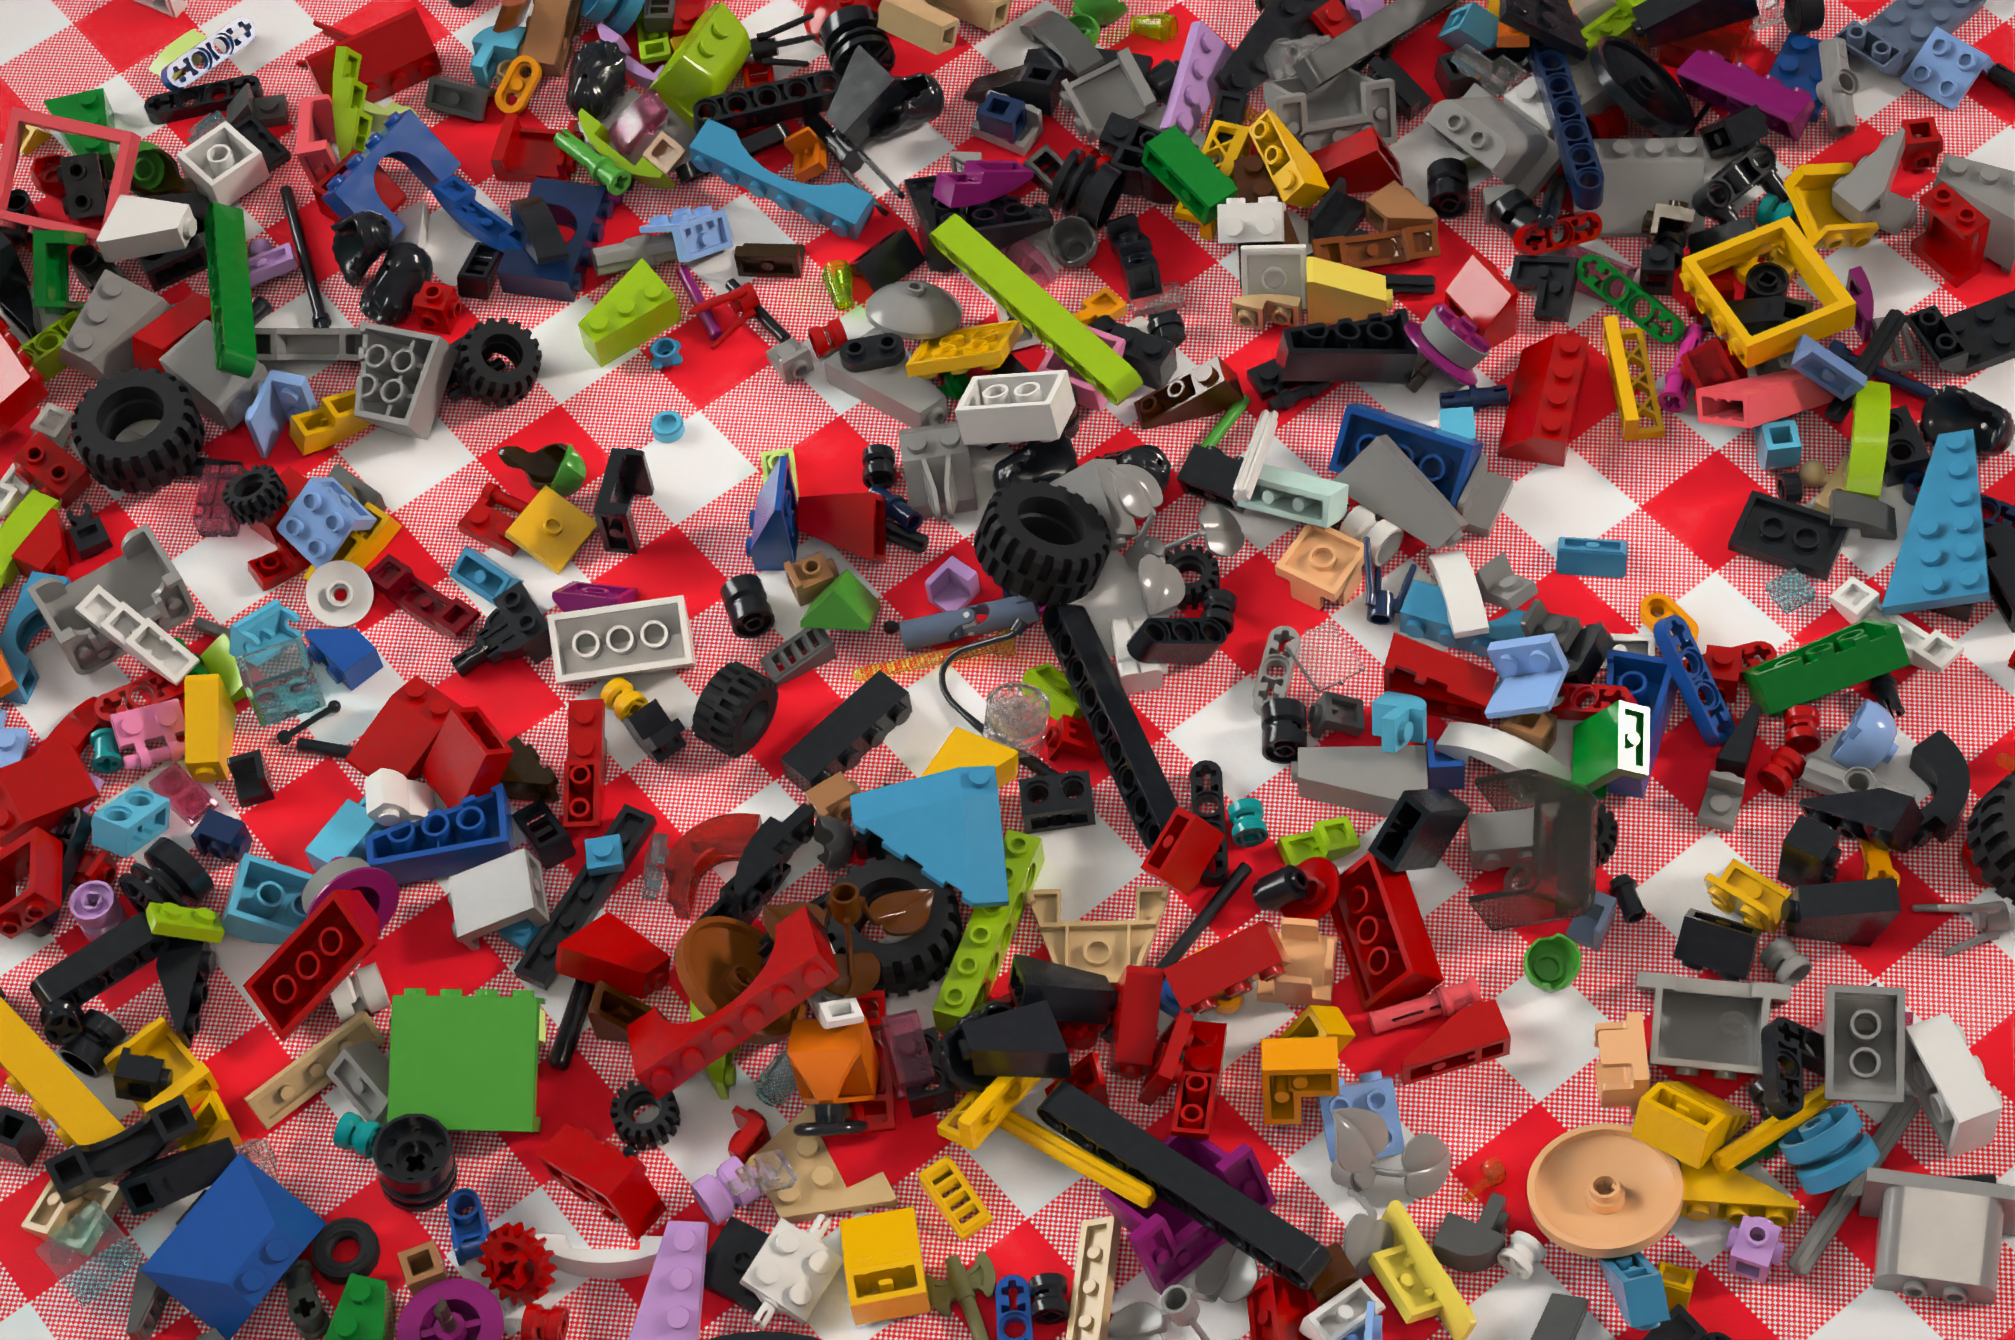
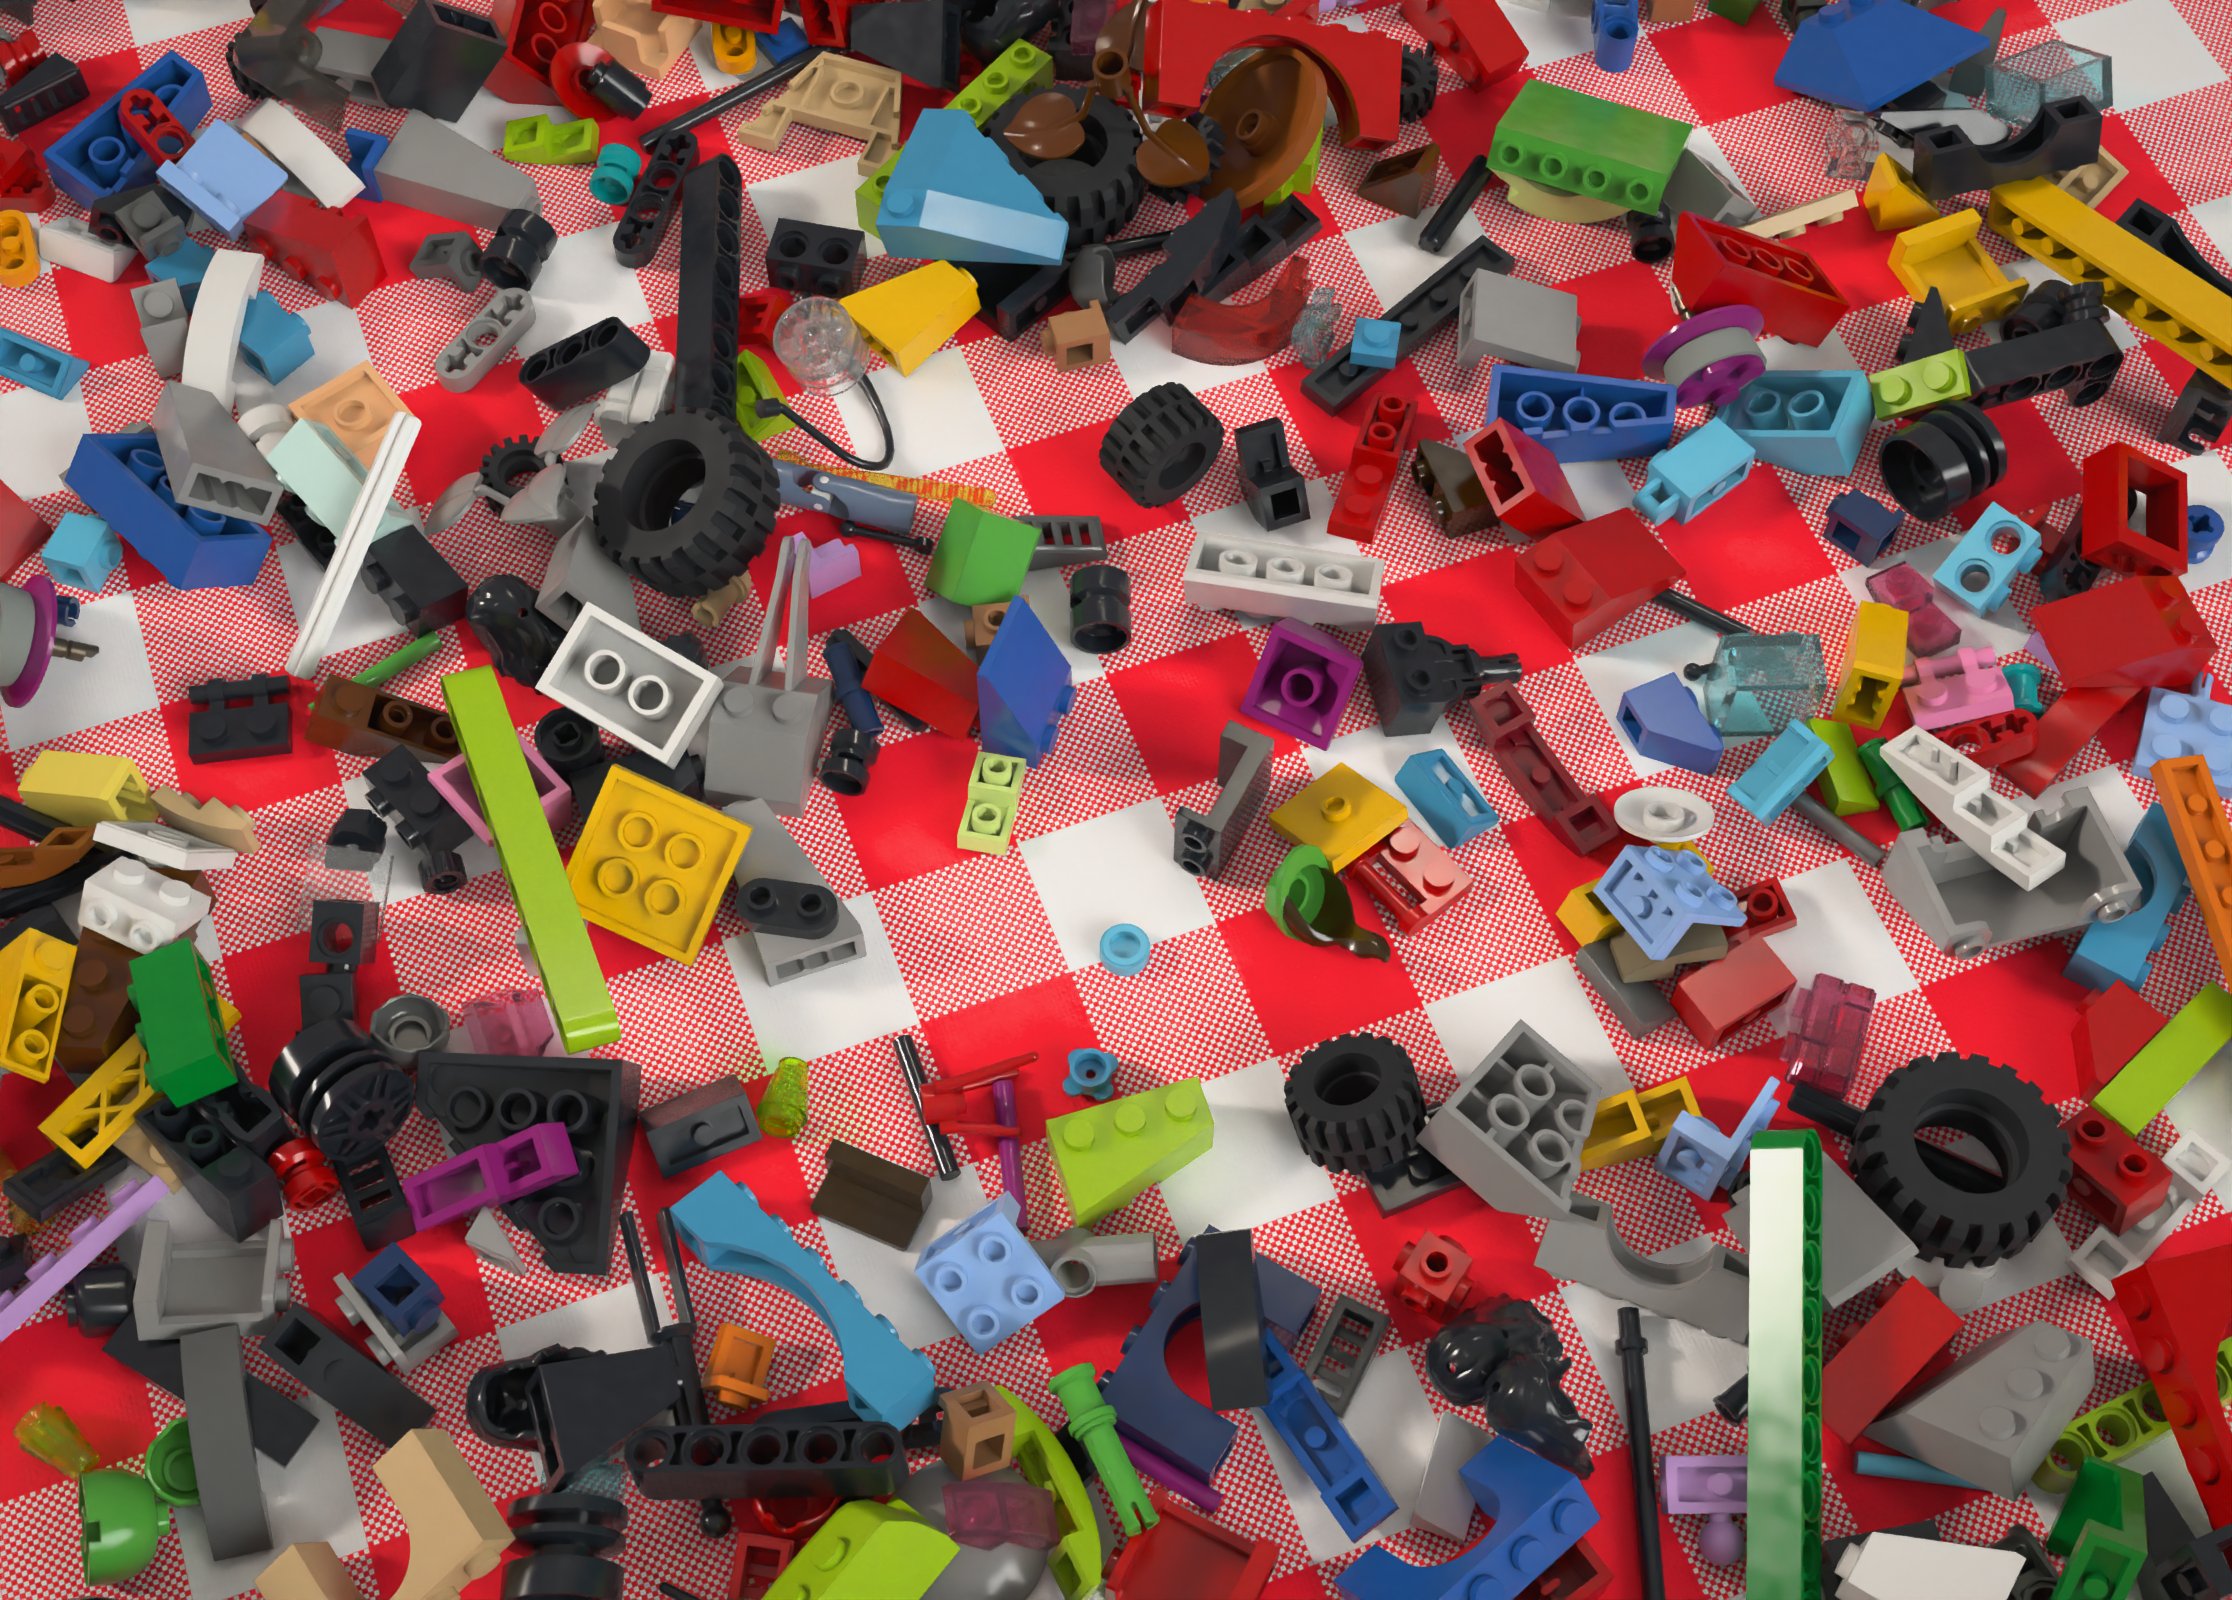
camera: 170 degrees left, 5 degrees up
(88, 533) = (2044, 1052): black plate -> none
(96, 909) = (2034, 468): lavender wheel -> none
(140, 1077) = (1981, 256): black brick -> none
(251, 778) = (1815, 594): black panel -> none
(255, 494) = (1801, 953): black tyre -> none
(336, 1232) = (1752, 33): black tyre -> none
(356, 1134) = (1727, 146): teal wheel -> none
(395, 799) = (1622, 470): white brick -> none
(415, 1162) = (1668, 71): black wheel -> none
(545, 835) = (1440, 387): black slope -> none
(615, 955) = (1395, 229): red slope -> none
(621, 698) = (1299, 530): yellow wheel -> none
(790, 360) = (907, 992): light grey bracket -> none
(834, 336) = (839, 1000): red wheel -> none
(848, 732) = (1031, 411): black brick -> none
(914, 310) = (723, 999): light grey dish -> none
(1099, 304) = (429, 911): light orange plate -> none
(1183, 851) = (704, 130): red brick -> none
(1220, 605) = (514, 417): black wheel -> none
(1324, 657) = (421, 331): clear piece -> none
(1349, 351) = (135, 685): black wedge -> none
(1381, 602) = (316, 361): dark blue plant -> none
(1399, 720) = (379, 199): medium azure brick -> none
(1611, 746) = (187, 74): green panel -> none
(1691, 682) = (39, 136): blue beam -> none
(1721, 801) = (106, 56): light grey bracket -> none

